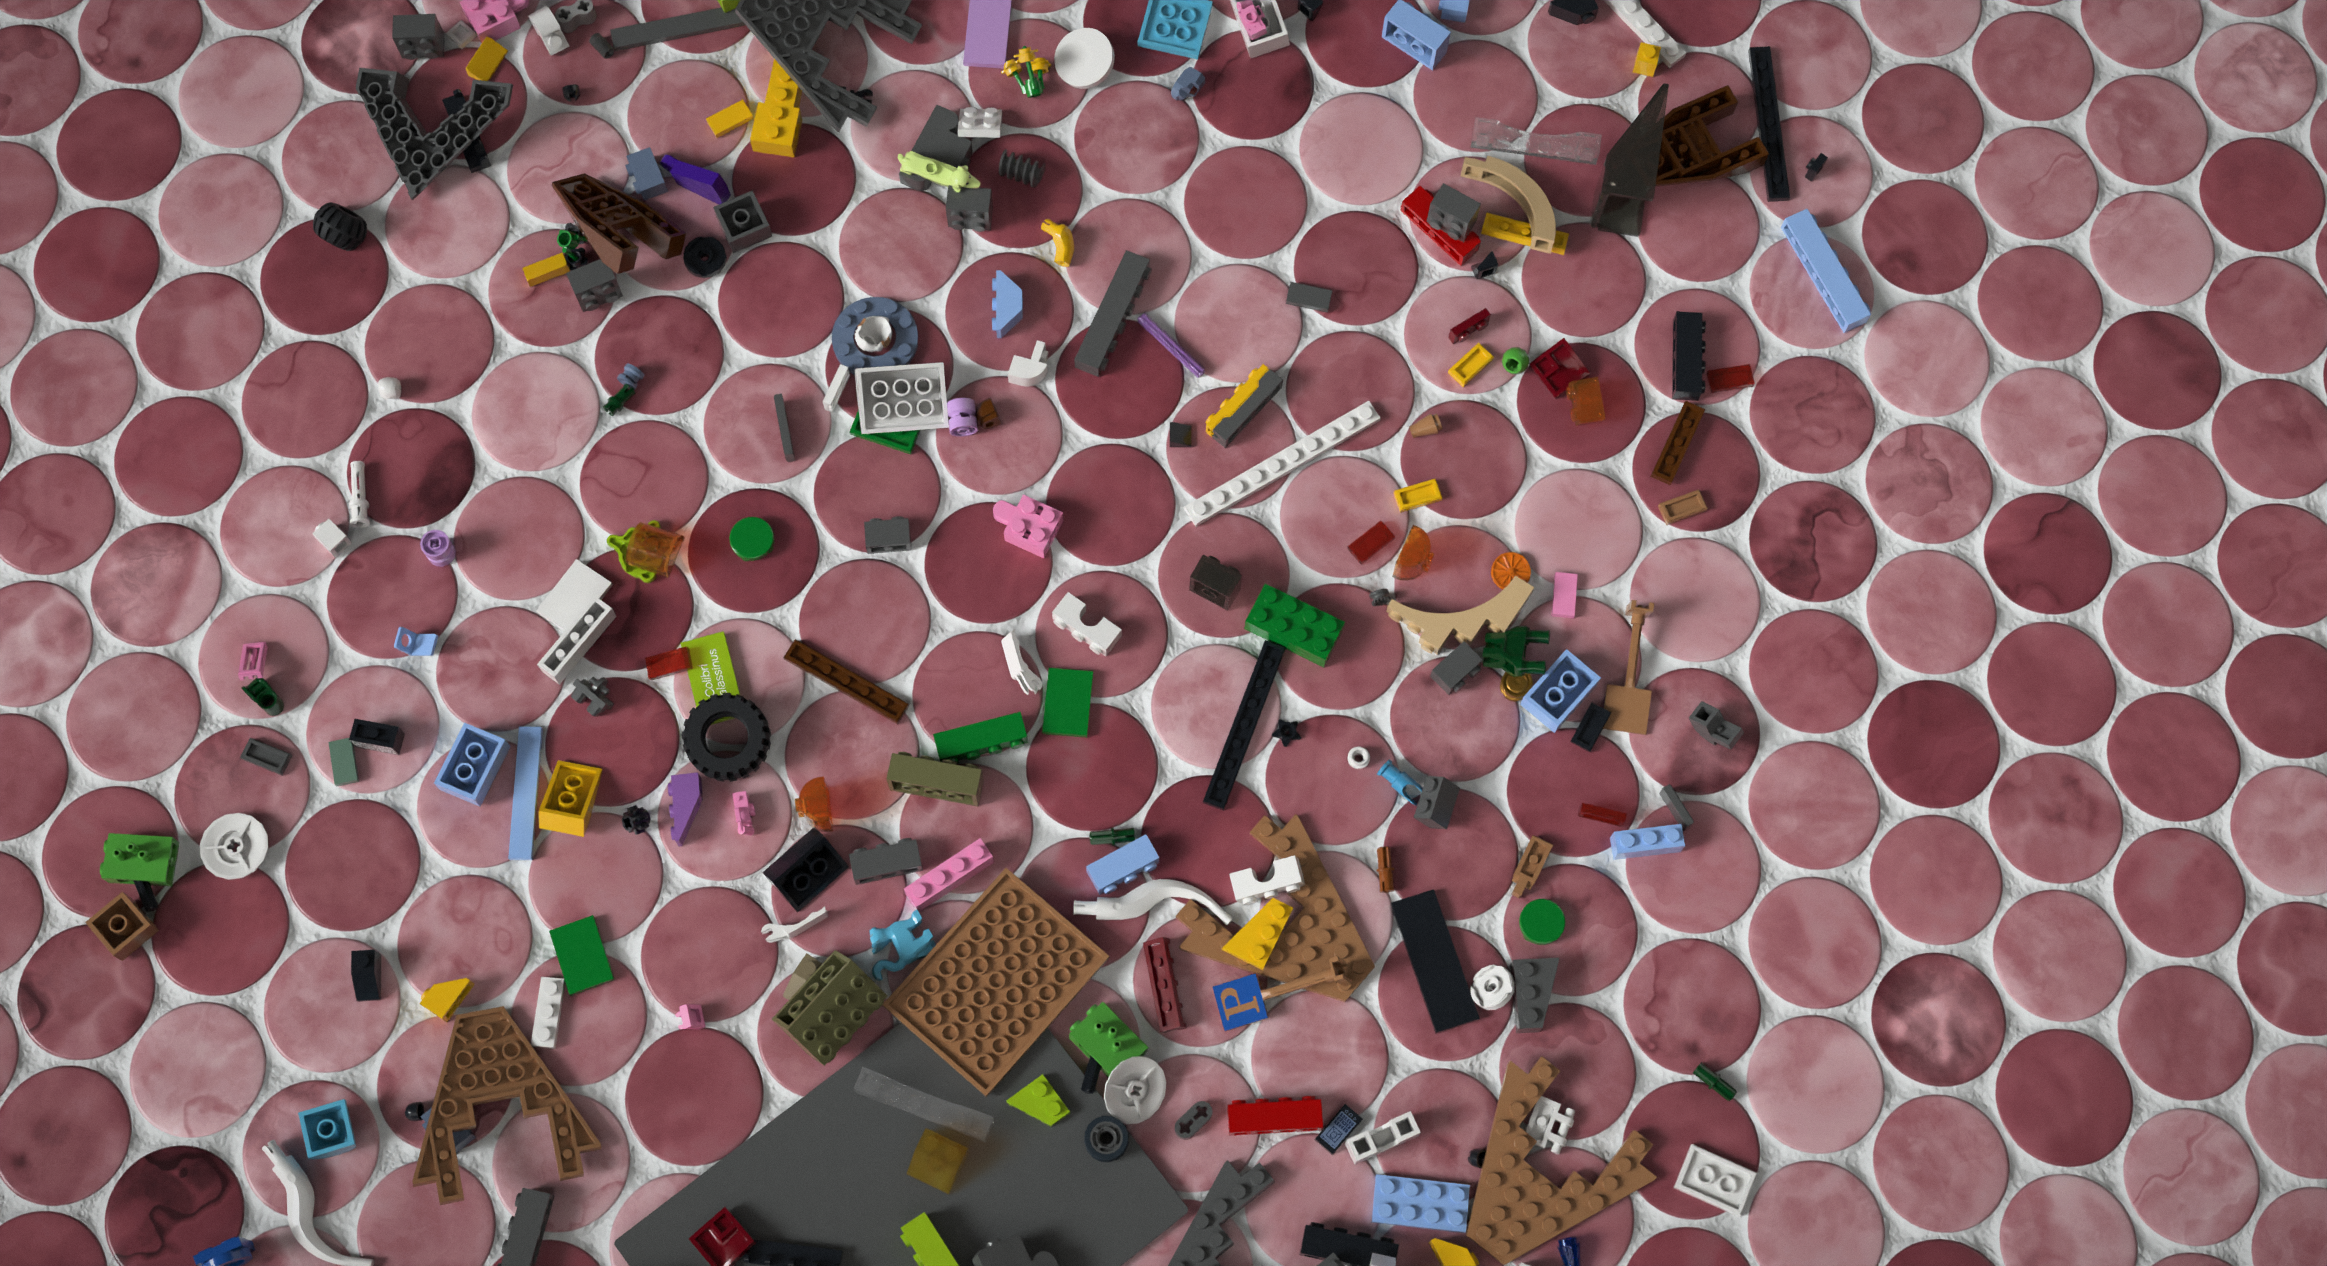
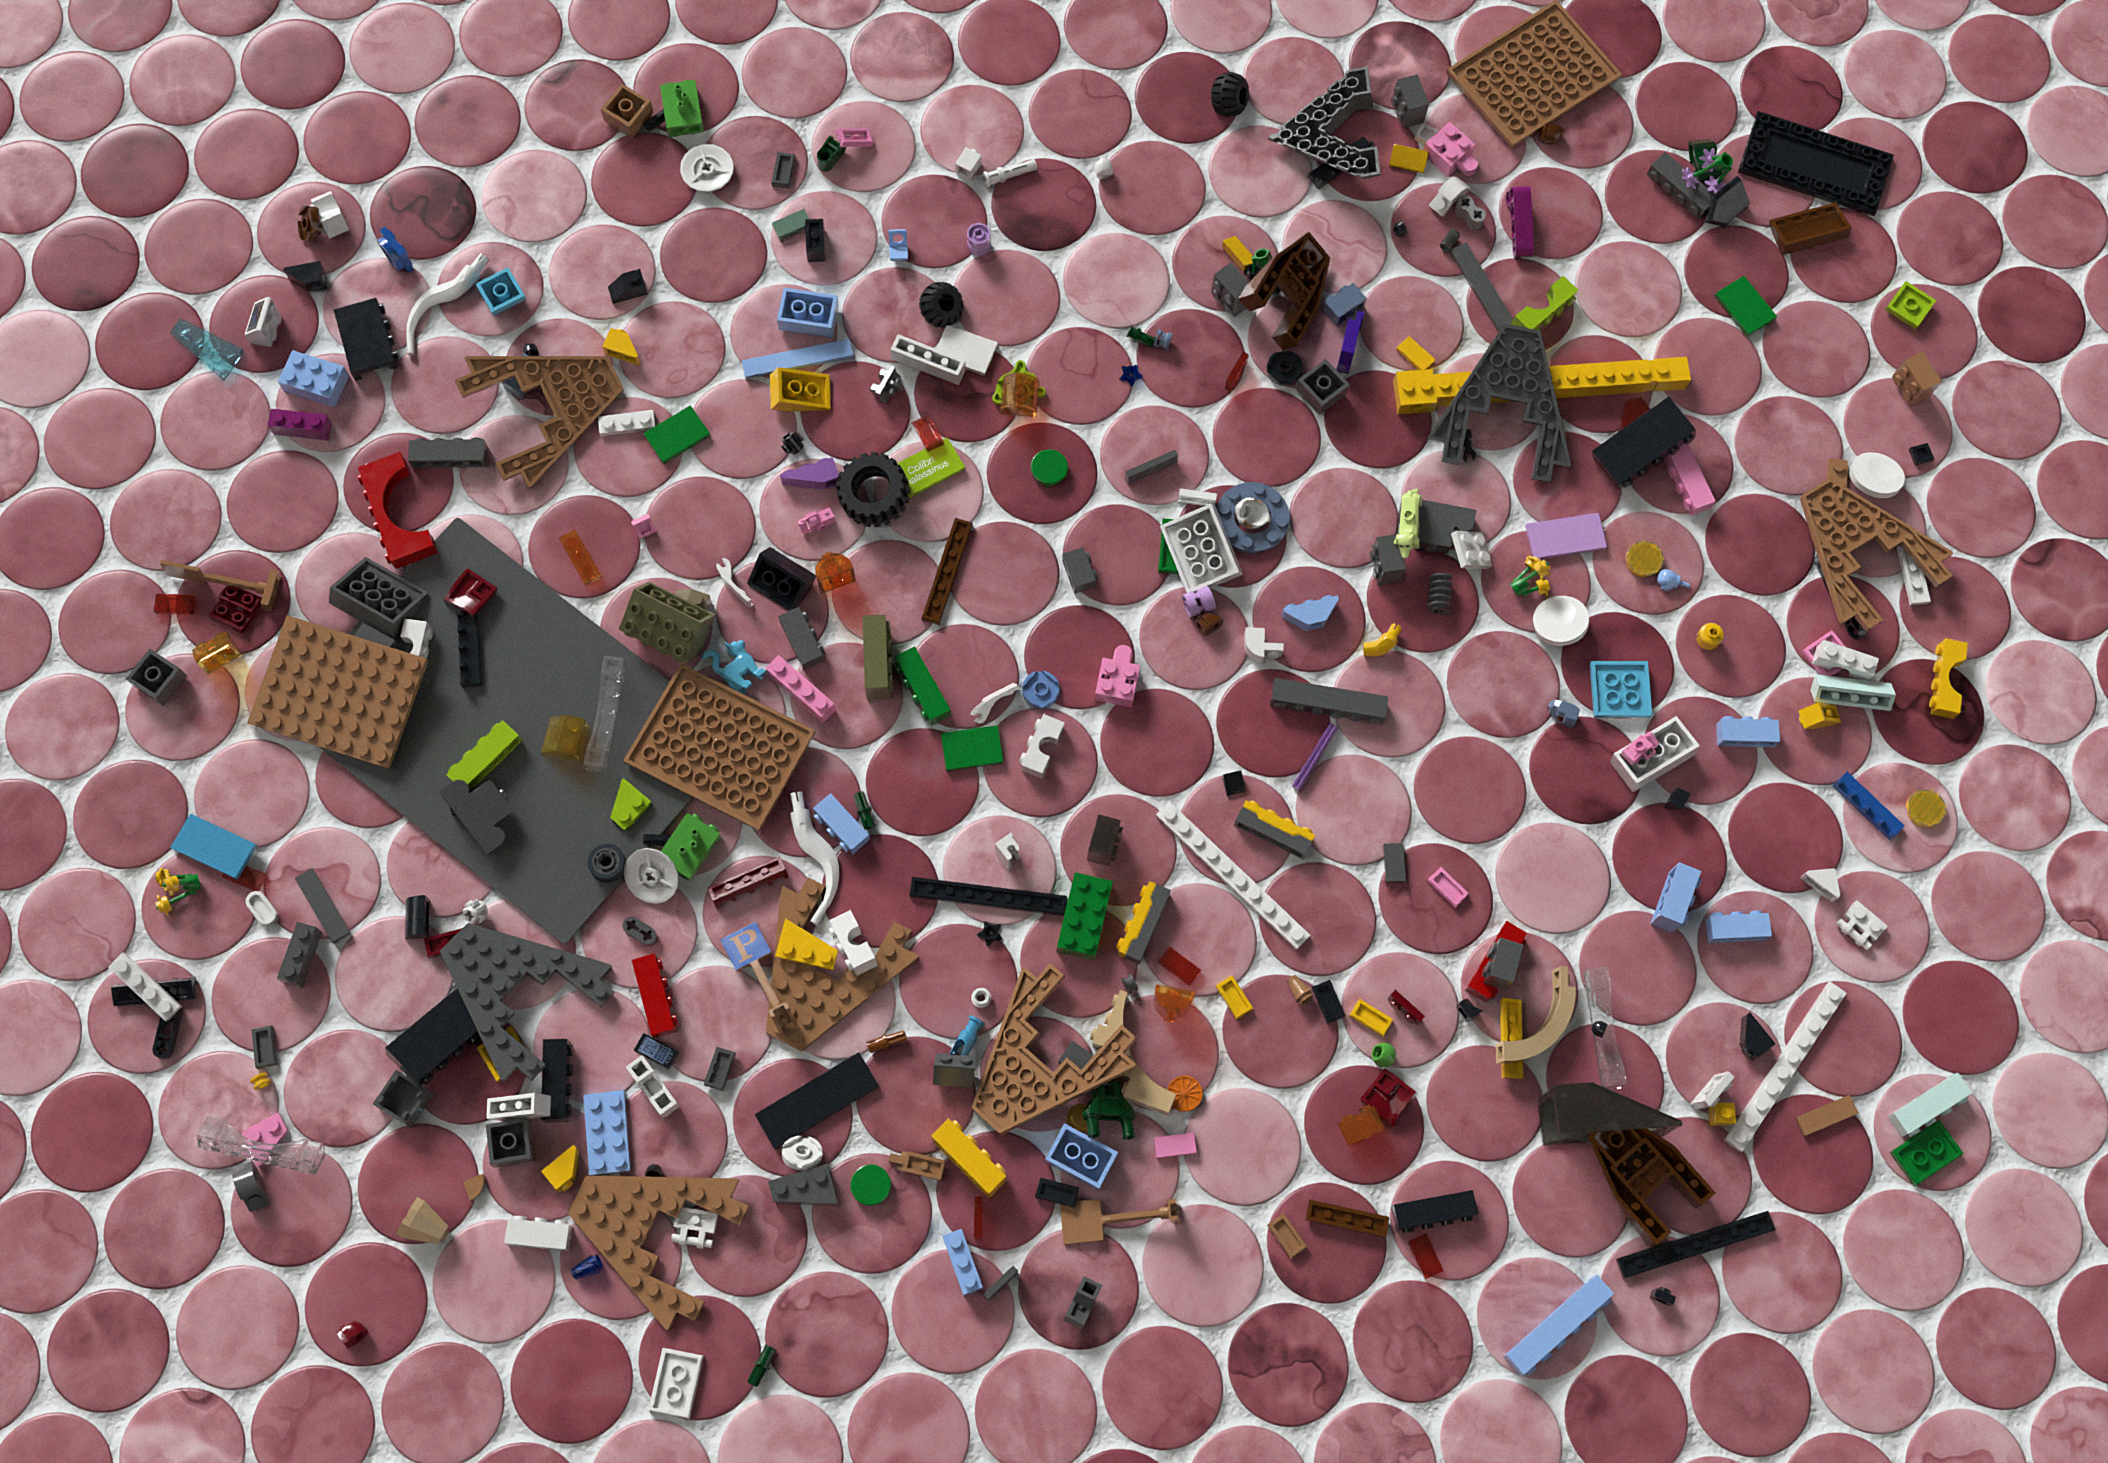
camera: 75 degrees right, 0 degrees up
(508, 610) = (946, 295): none -> black wheel
(661, 418) = (1130, 370): none -> clear blue plate
(694, 308) = (1236, 371): none -> clear red tile
(709, 1101) = (580, 557): none -> clear orange plate
(1017, 611) = (1040, 689): none -> medium blue tile
(1202, 690) = (1005, 850): none -> white hinge
(1315, 566) = (1143, 923): none -> piece
(1348, 252) = (1447, 887): none -> bright pink tile
(1376, 1060) = (719, 1069): none -> dark grey plate
(1444, 402) = (1328, 1002): none -> black tile
(1466, 738) = (1018, 1084): none -> medium nougat wing
(1536, 145) = (1599, 1028): none -> black hinge
(1537, 807) = (968, 1157): none -> yellow brick
(1623, 59) = (1709, 1094): none -> white plate

